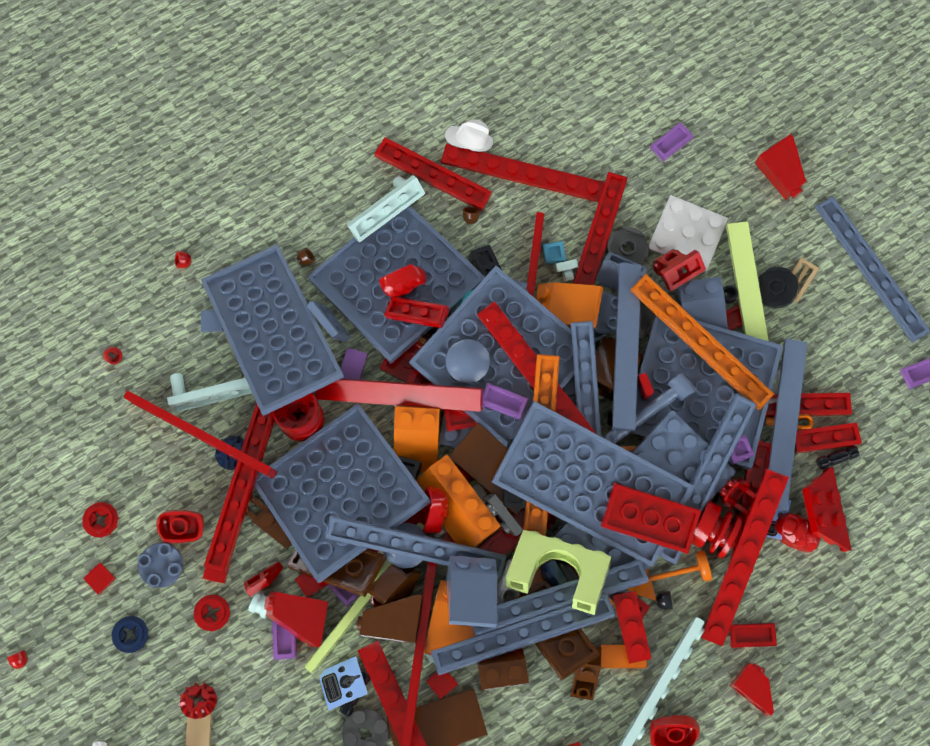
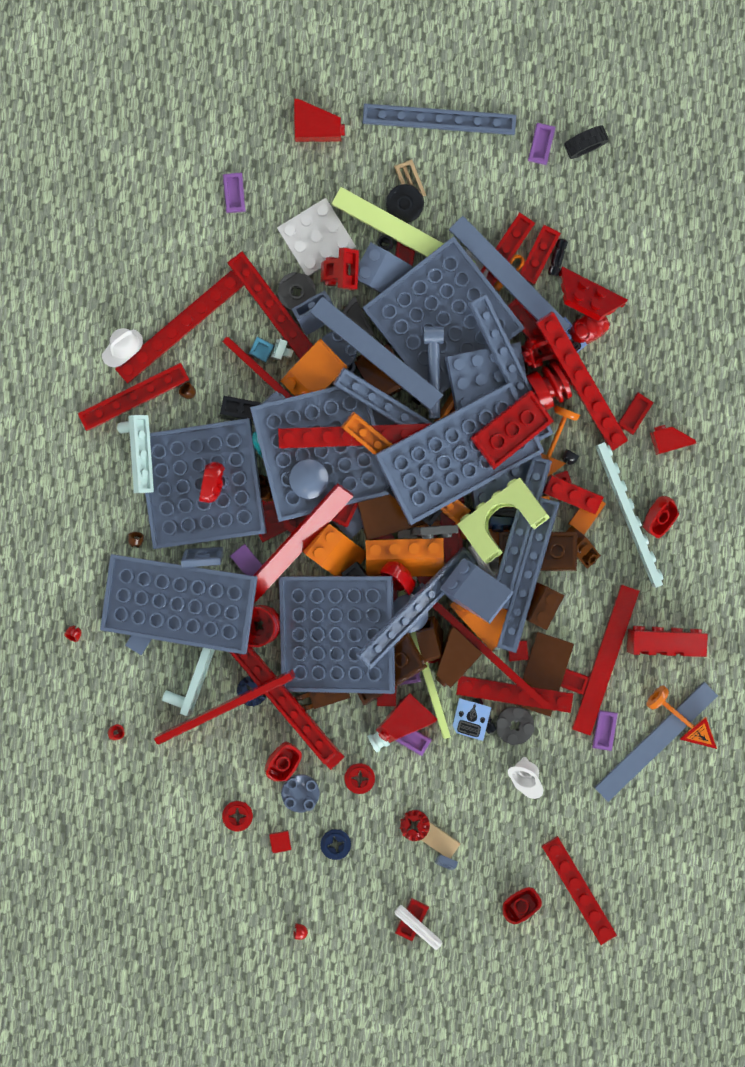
camera: 50 degrees left, 15 degrees up
(262, 579) = (361, 728): red tile -> none
(416, 312) = (243, 489): red tile -> none
(504, 401) = (356, 472): medium lavender tile -> none
(644, 386) = (414, 362): red tile -> none
(701, 341) = (410, 296): orange tile -> none
(742, 450) = (509, 326): medium lavender tile -> none

